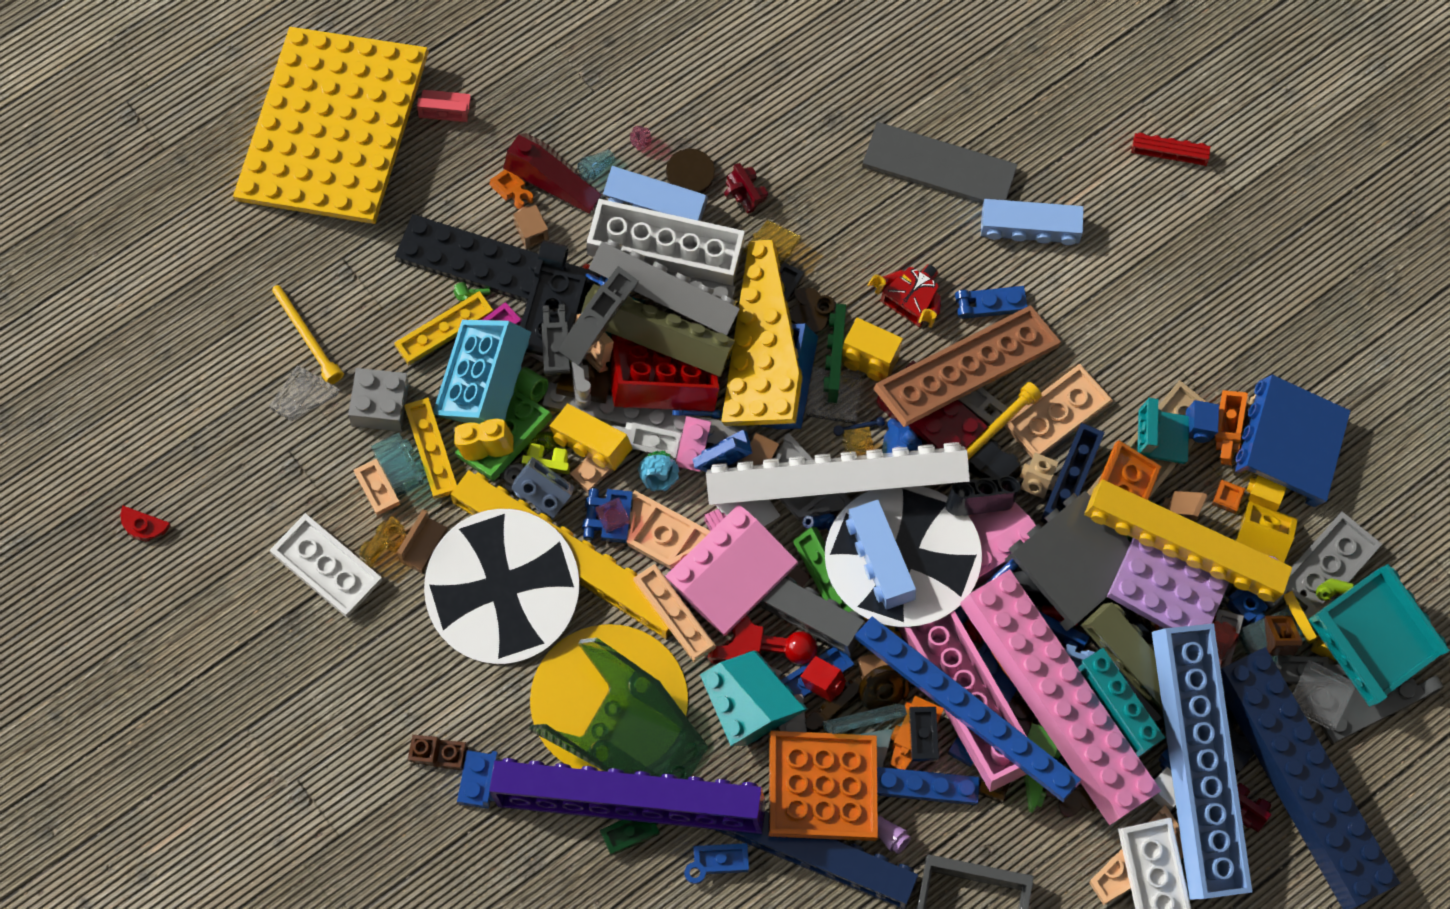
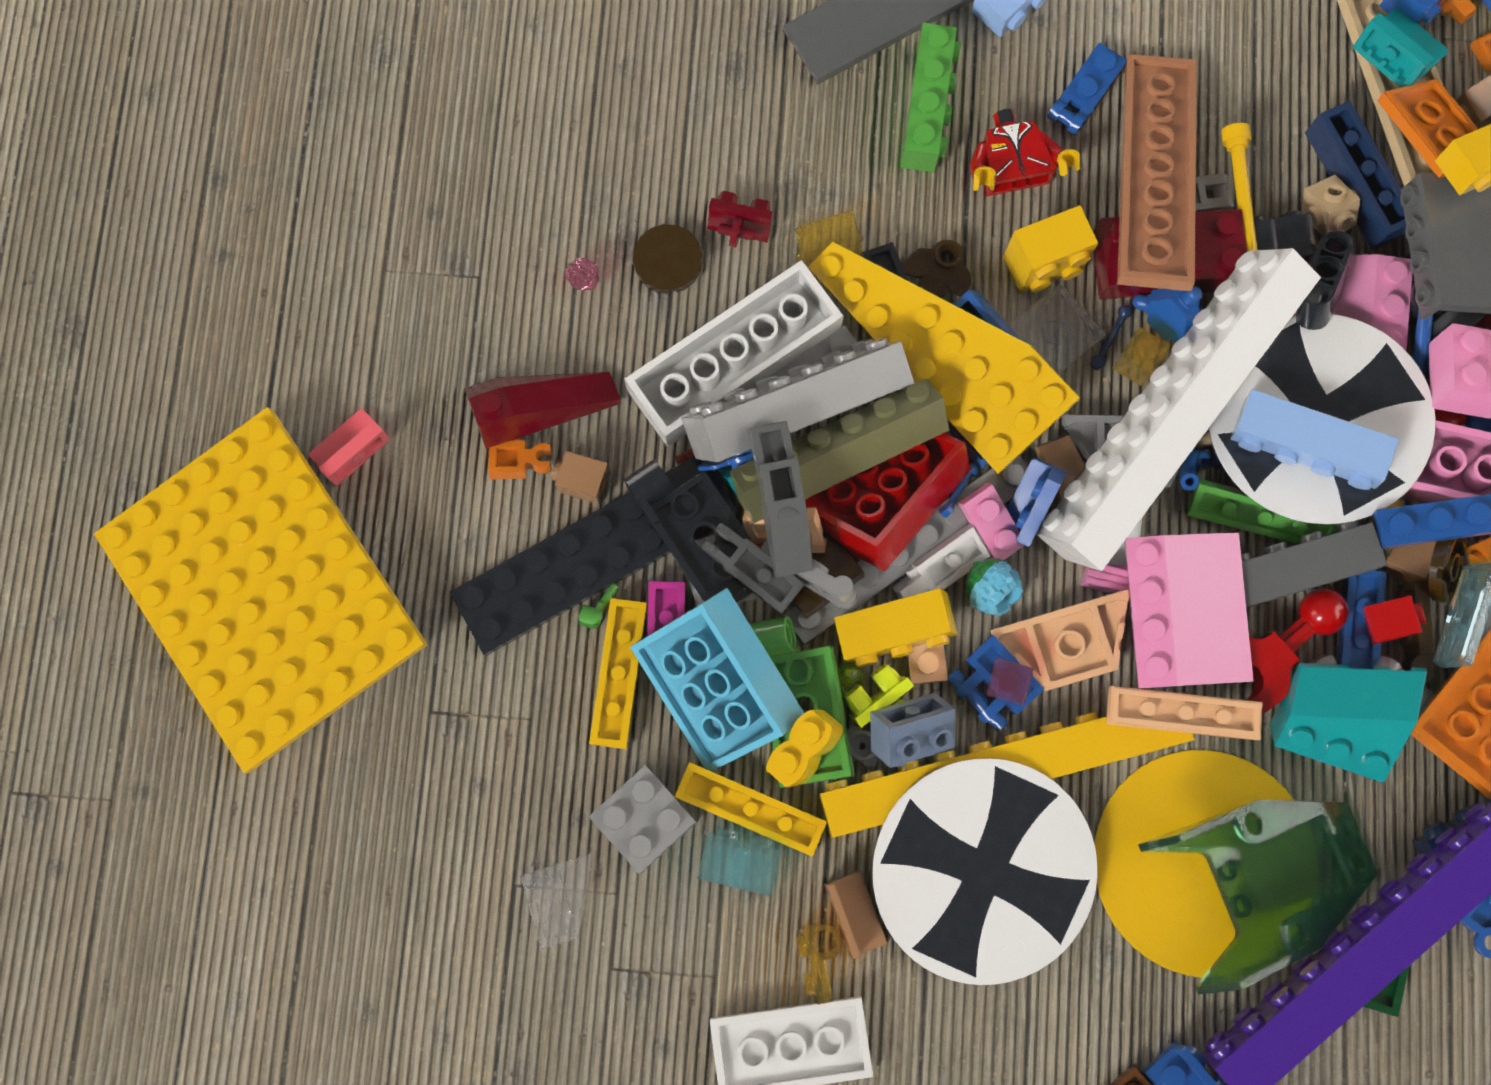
camera: 45 degrees left, 10 degrees up
(330, 372) = (556, 843): yellow piece -> none
(376, 487) = (745, 910): light nougat plate -> none
(595, 164) = (569, 350): clear light blue cone -> none
(653, 194) = (666, 318): light blue brick -> none
(833, 362) = (1026, 295): dark green plate -> none
(904, 224) = (928, 97): none -> bright green brick
(1058, 412) = (1271, 104): light nougat tile -> none

